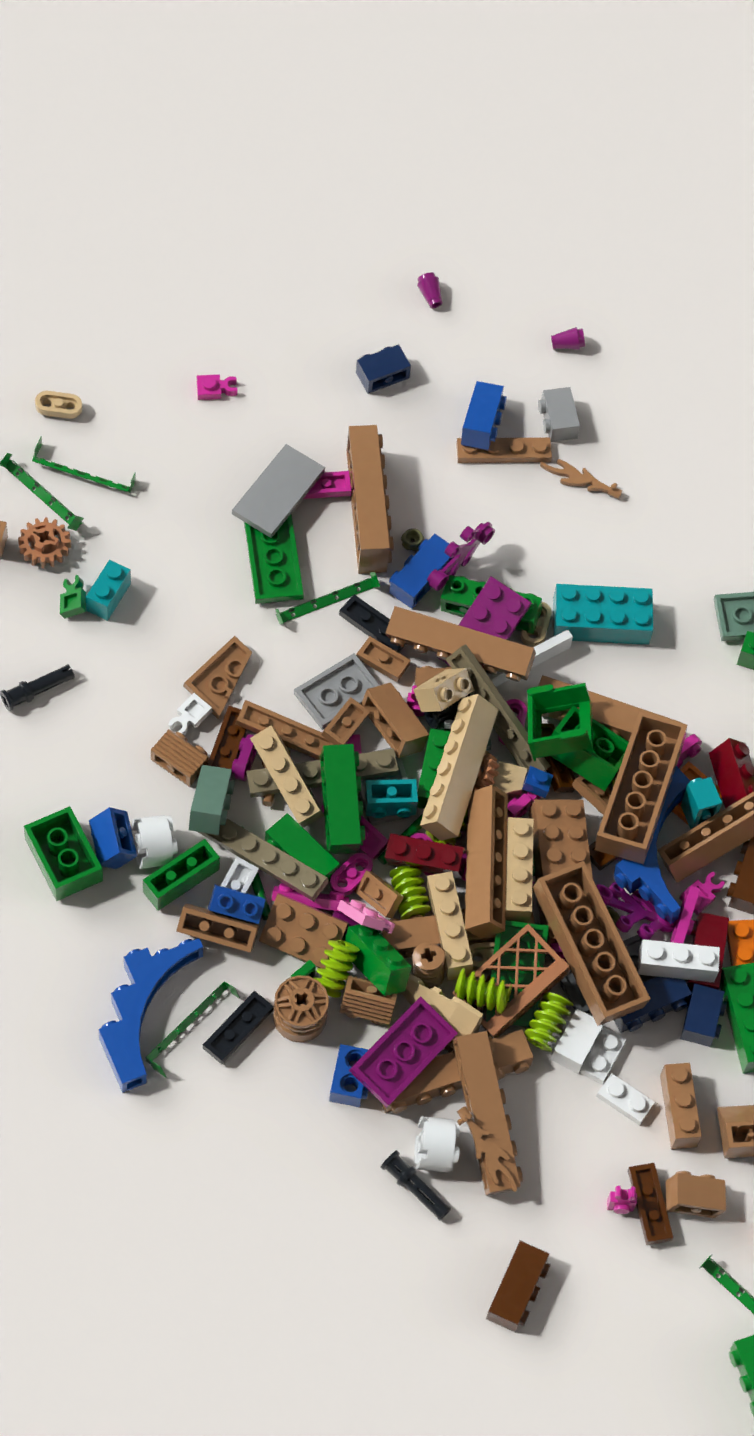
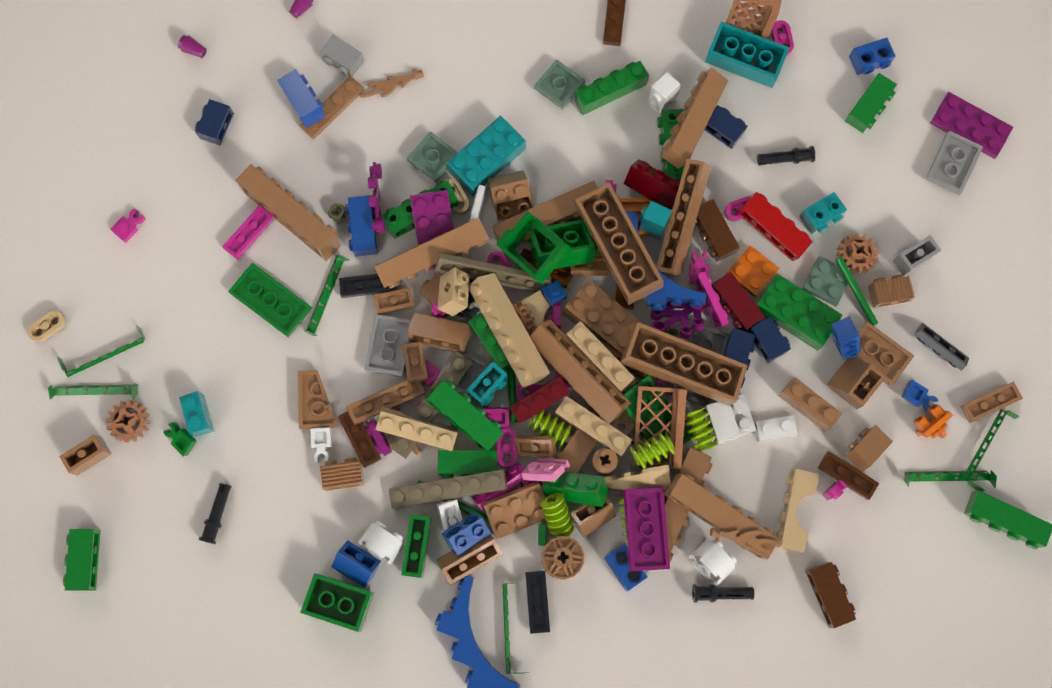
camera: 40 degrees left, 15 degrees up
(211, 800) = (388, 485): sand green brick -> none
(278, 490) = (232, 257): light grey tile -> none
(550, 568) = (431, 156): none -> sand green plate
(589, 664) = (510, 194): none -> medium nougat slope
(593, 1168) = (791, 534): none -> tan arch
(678, 960) = (734, 325): white brick -> none

